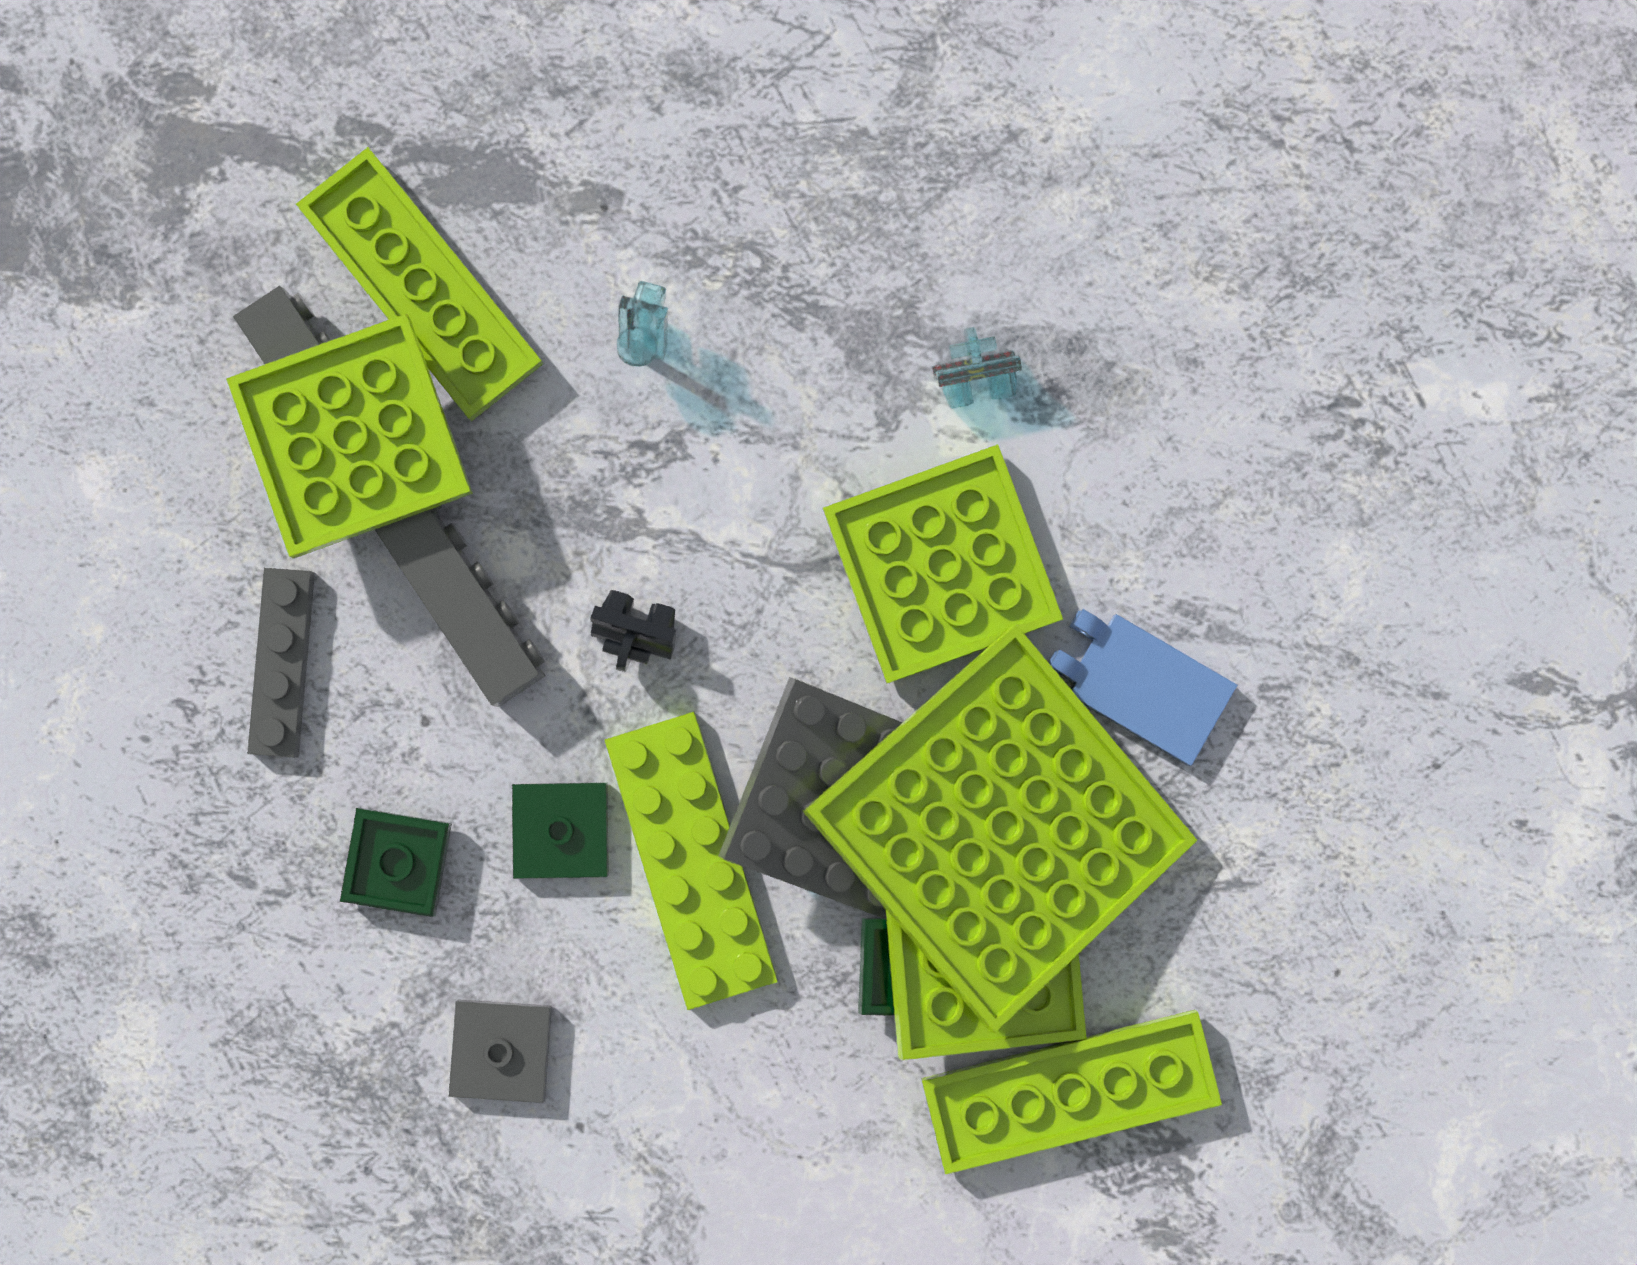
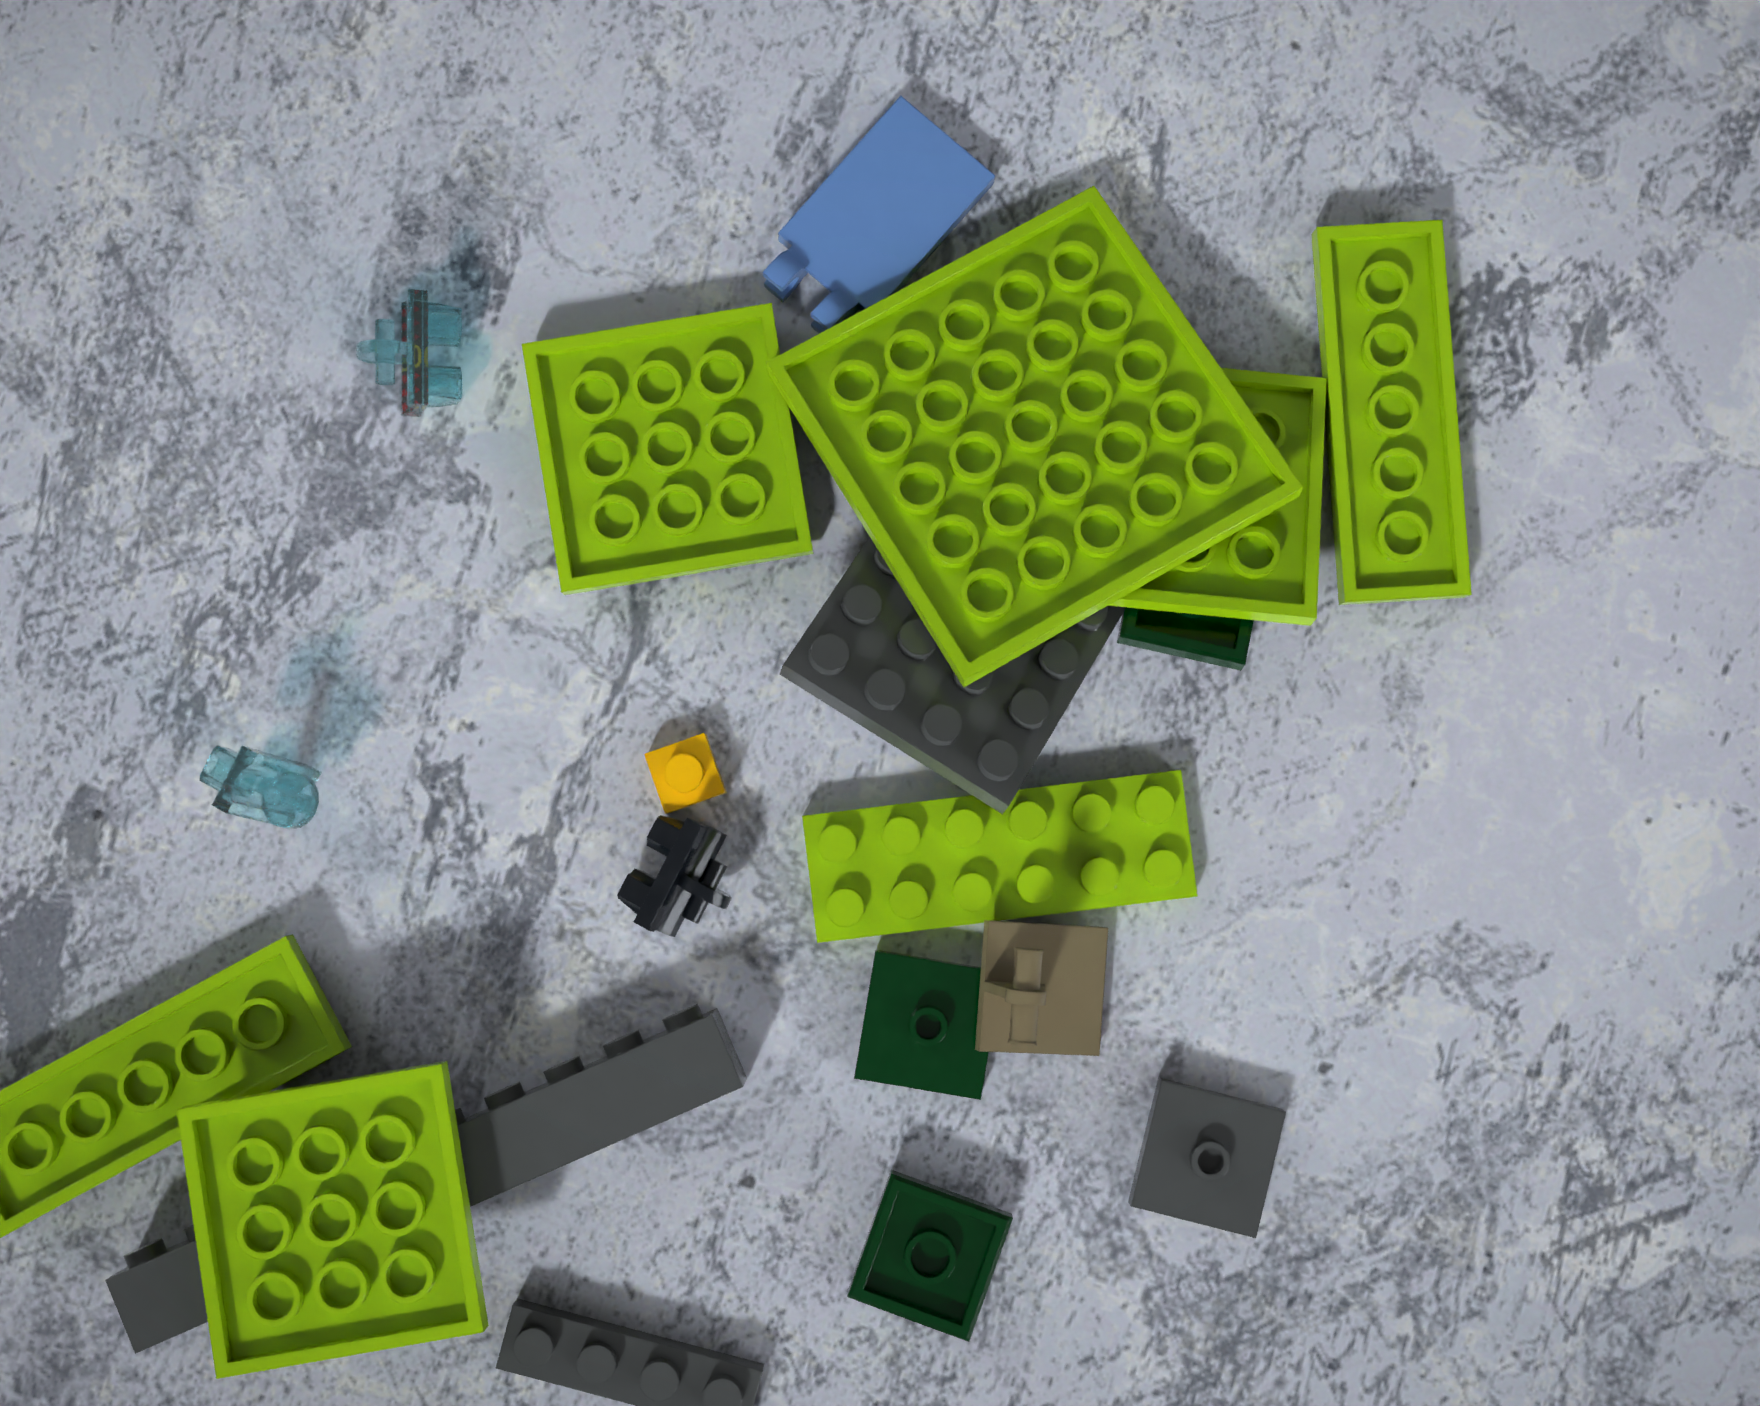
camera: 85 degrees left, 0 degrees up
(600, 908) = (1041, 988): none -> dark tan plate
(709, 621) = (685, 773): none -> yellow plate

